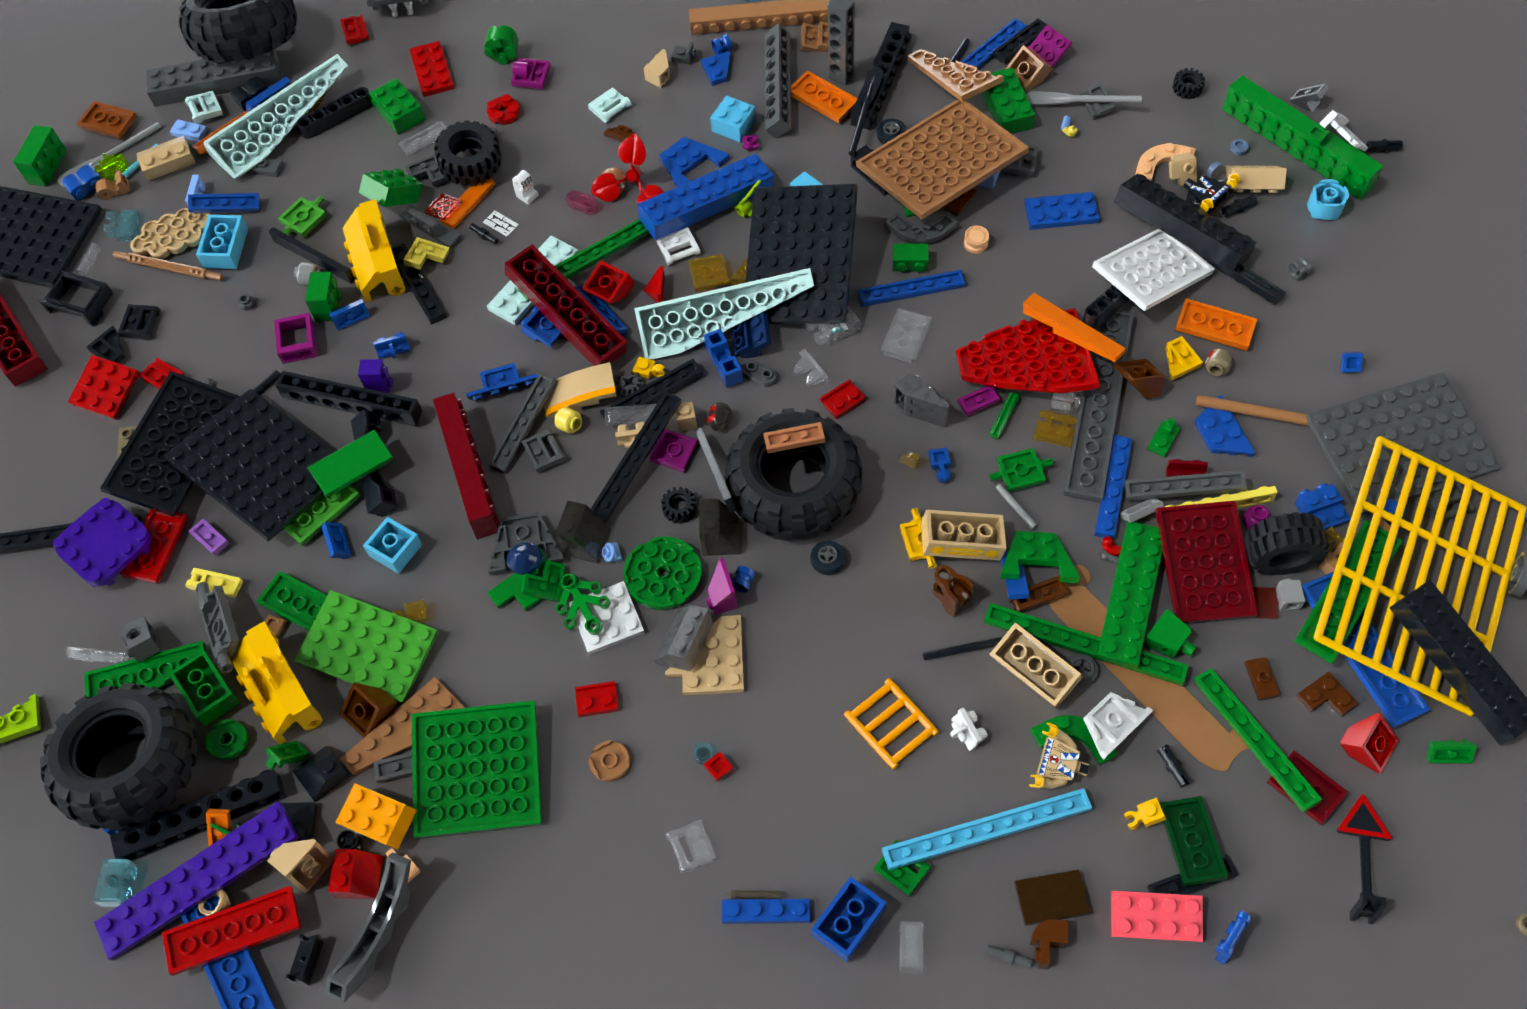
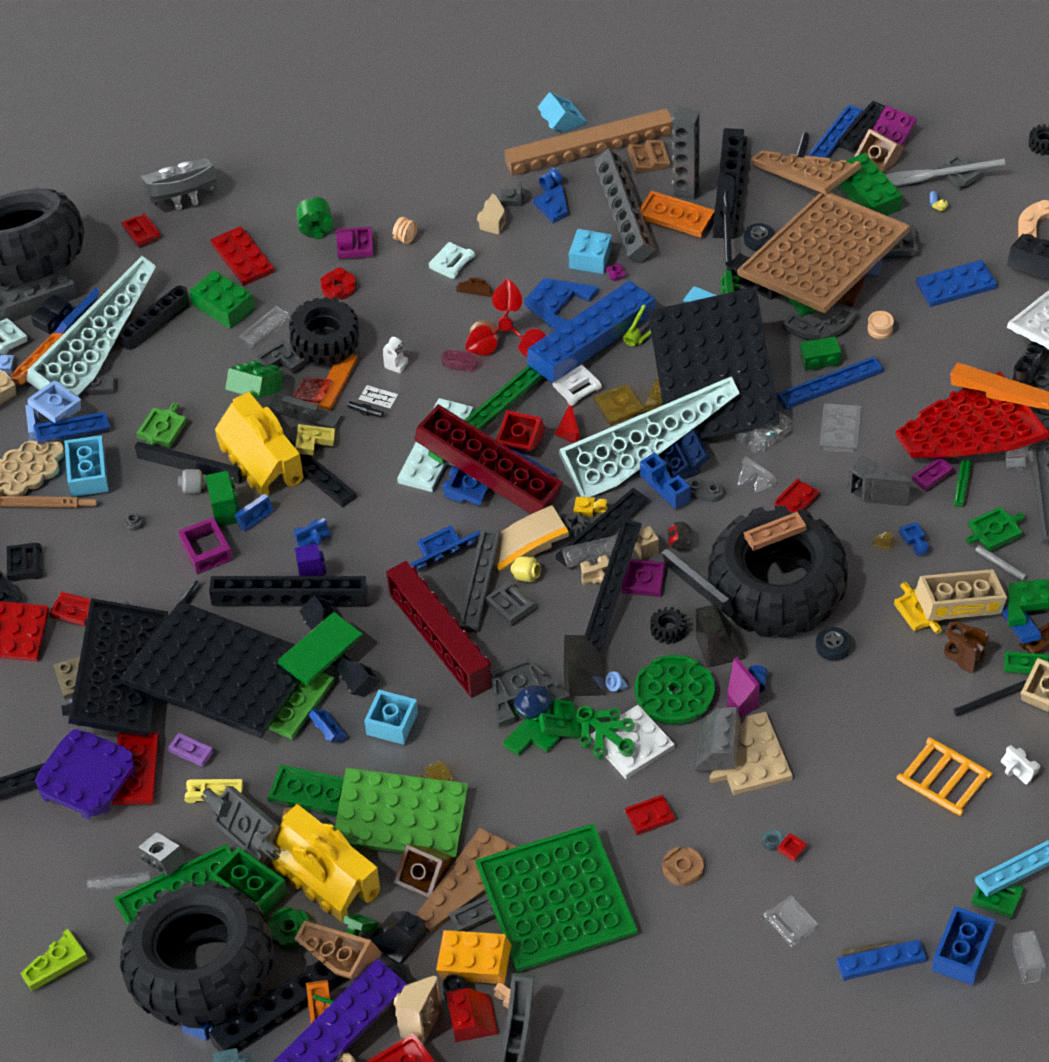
camera: 15 degrees left, 10 degrees down
(214, 176) = (55, 402): none -> light blue plate
(250, 782) = (339, 951): none -> medium nougat wedge
(576, 69) = (404, 230): none -> light nougat wheel
(848, 173) = (729, 283): none -> green plate
(1055, 433) = (1015, 490): clear yellow plate -> none

